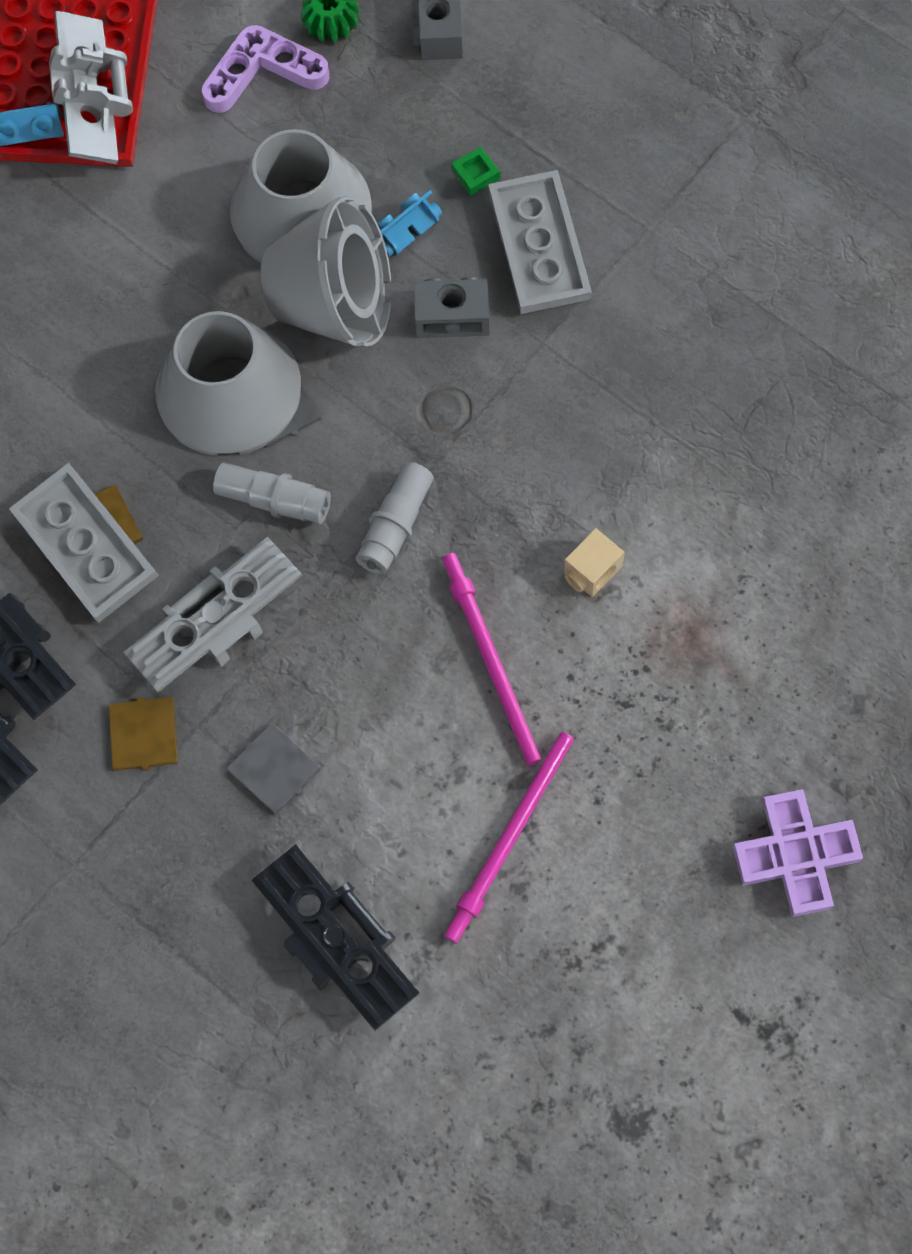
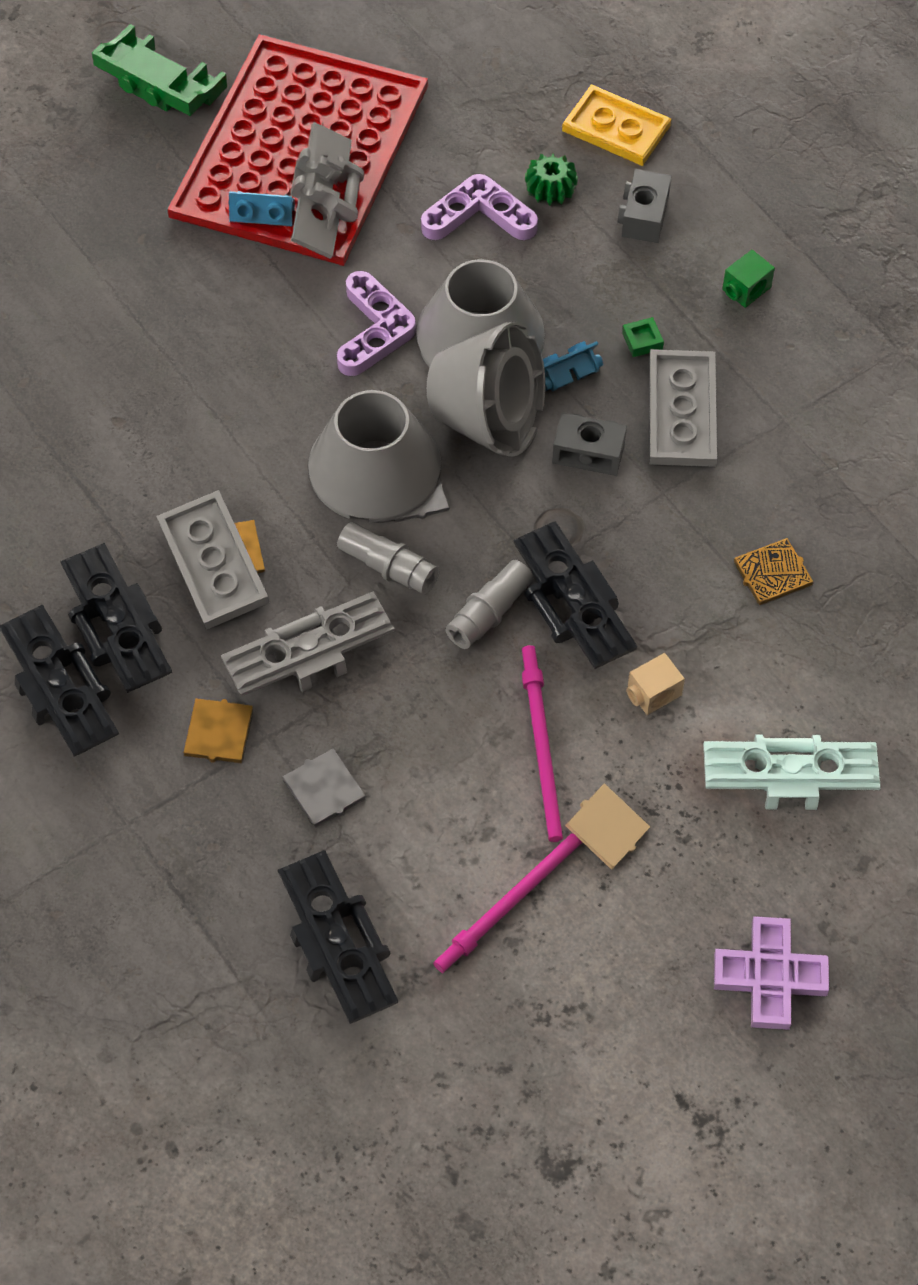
camera: 10 degrees right, 10 degrees down
(194, 230) = (383, 327): none -> lavender beam
(491, 478) = (584, 592): none -> black piece
(570, 77) = (748, 278): none -> green brick
(585, 735) = (607, 826): none -> tan piece
(682, 402) = (773, 571): none -> pearl gold piece
(761, 629) = (791, 774): none -> light aqua piece

